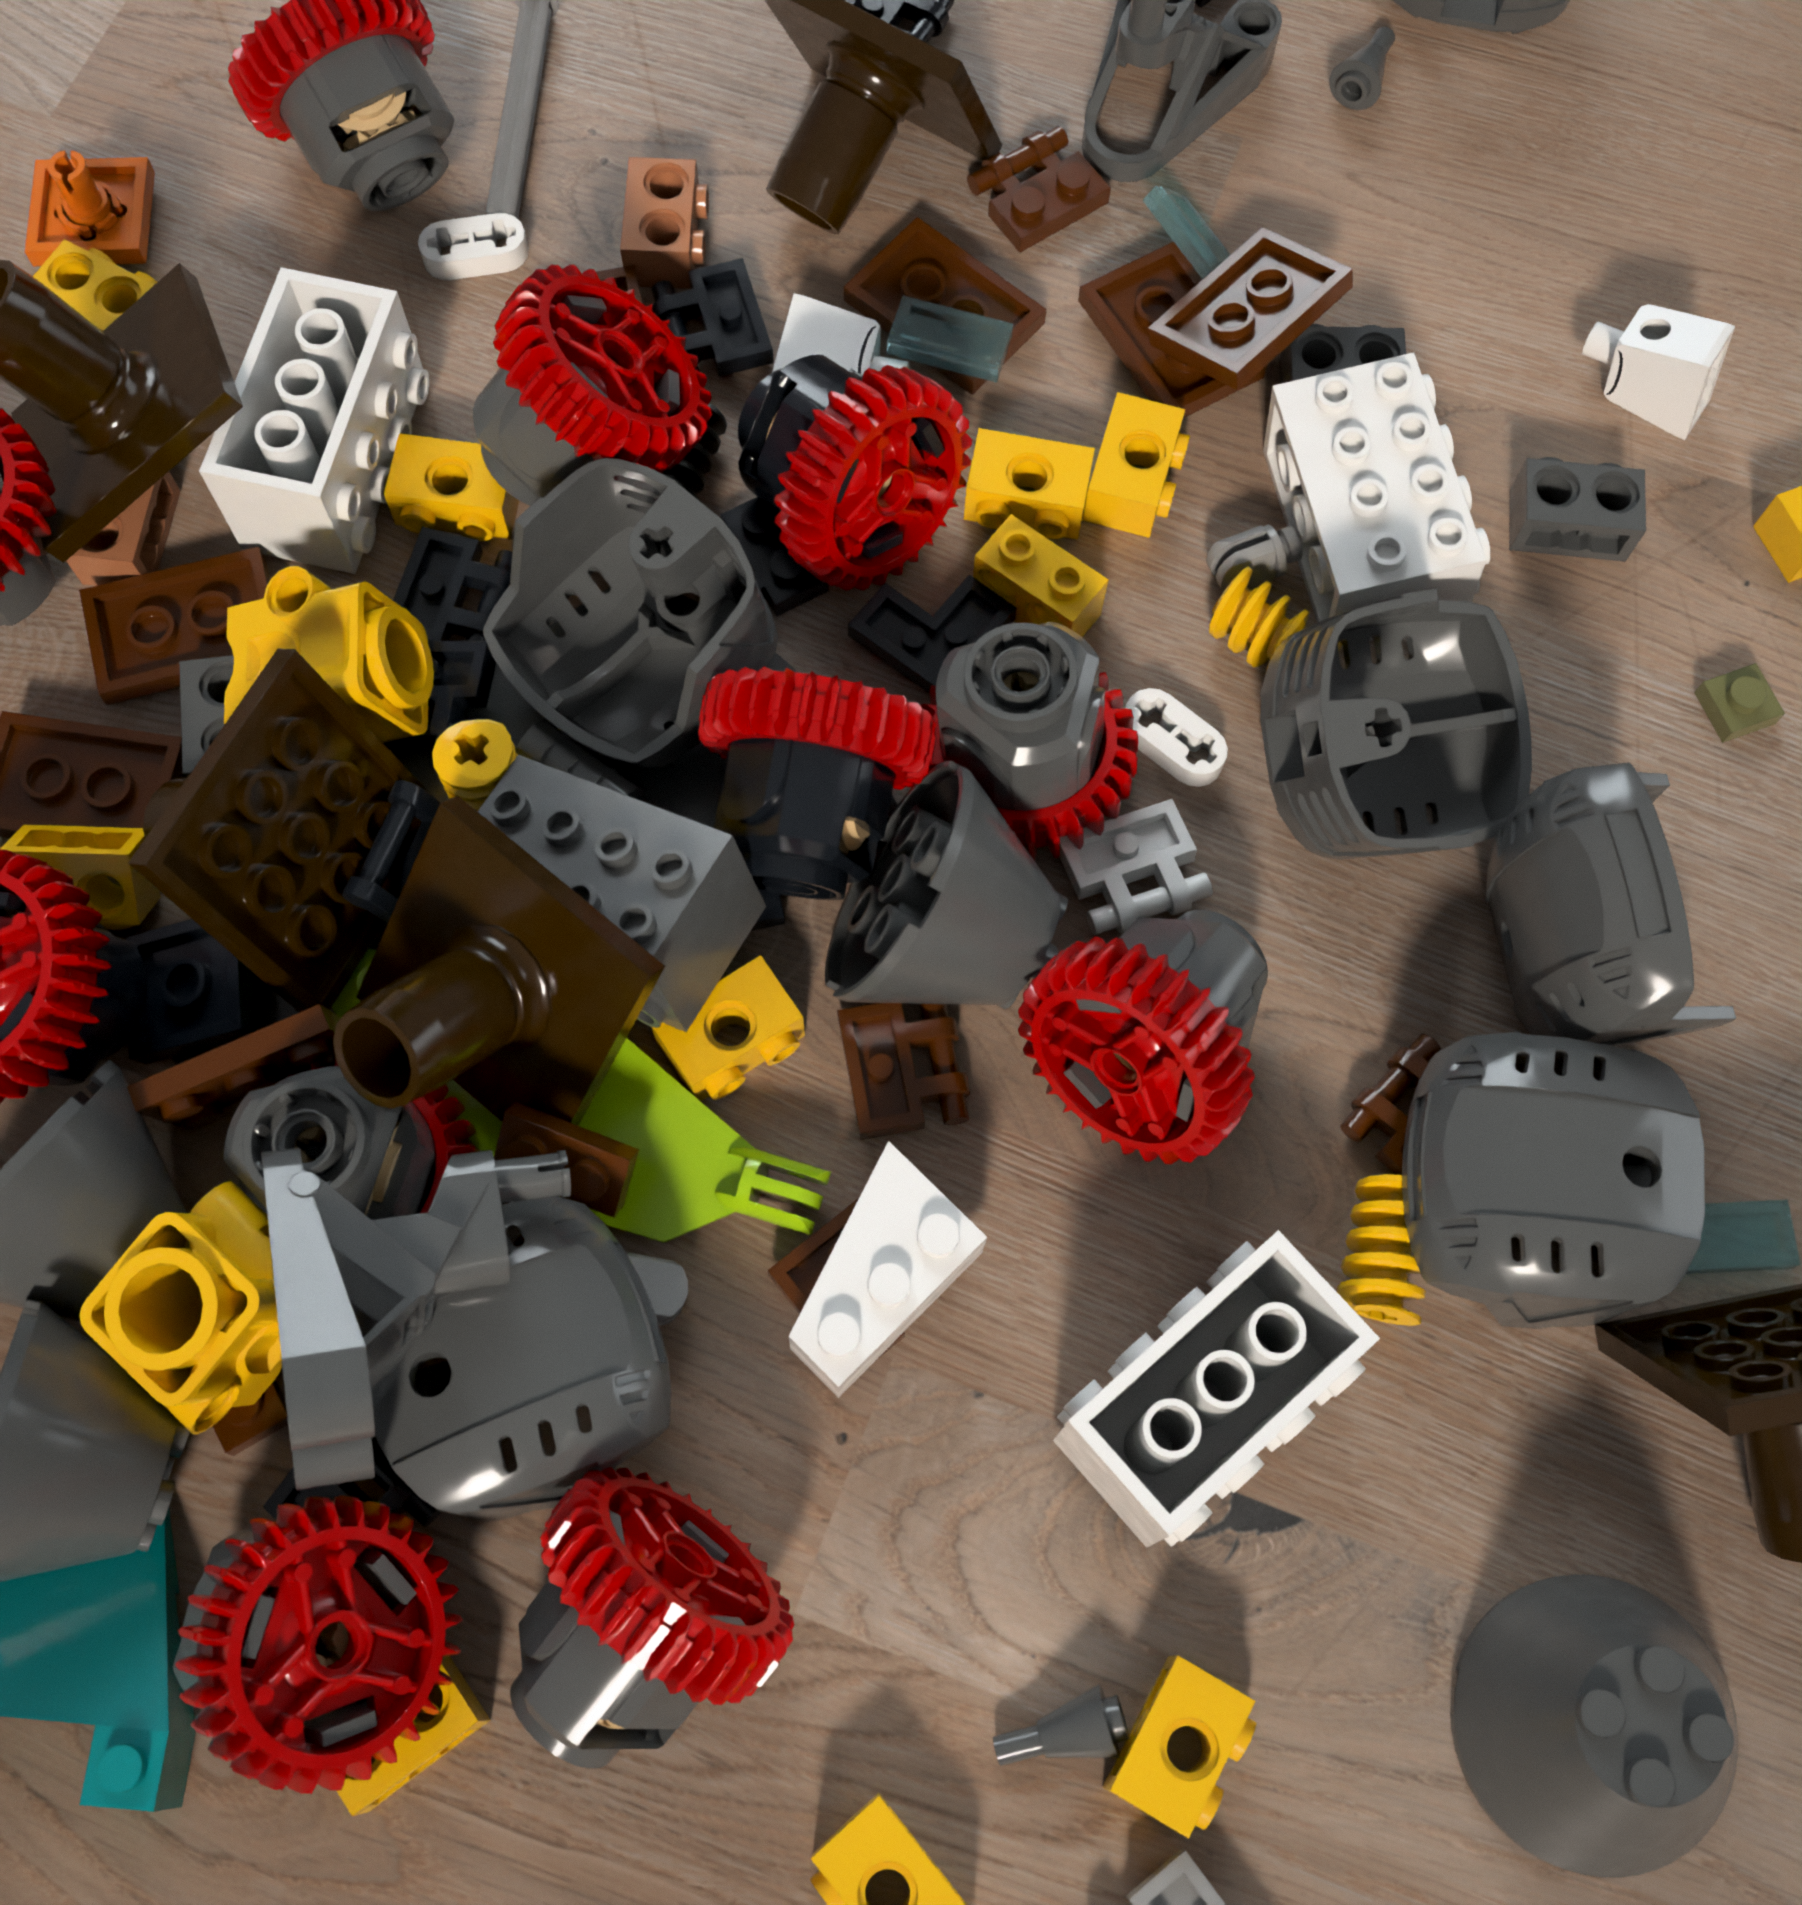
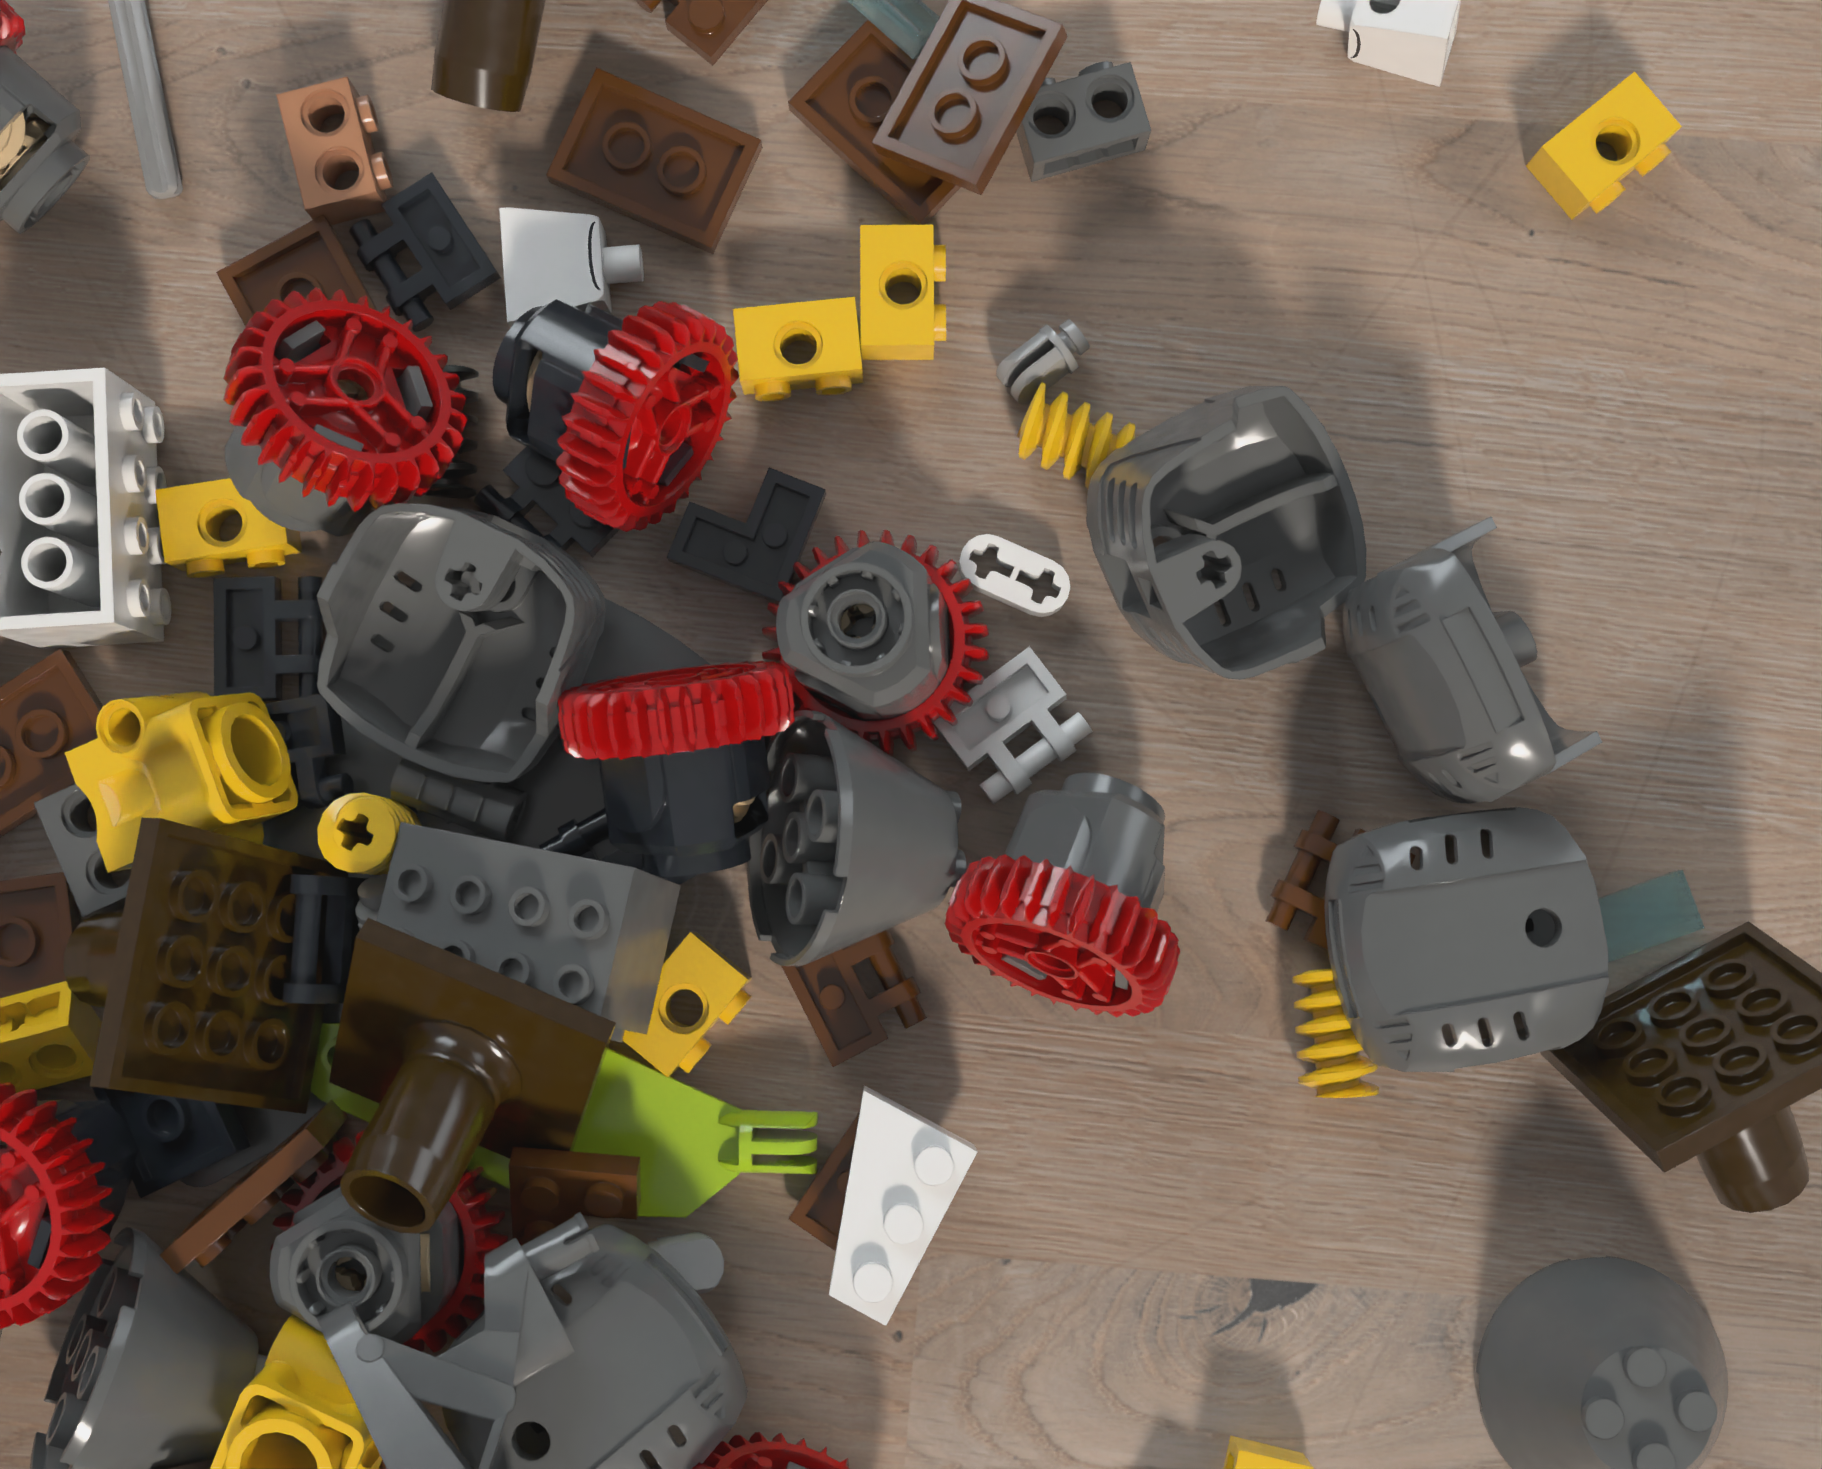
camera: 15 degrees left, 15 degrees up
(473, 246) = (148, 232): white beam -> none
(949, 338) = (673, 208): clear light blue tile -> none
(1040, 578) = (840, 457): yellow brick -> none
(1214, 1390) = (1210, 1225): white brick -> none
(1372, 487) = (1146, 274): white brick -> none
(1577, 512) = (1353, 222): dark grey brick -> none
(1739, 702) = (1547, 372): olive plate -> none

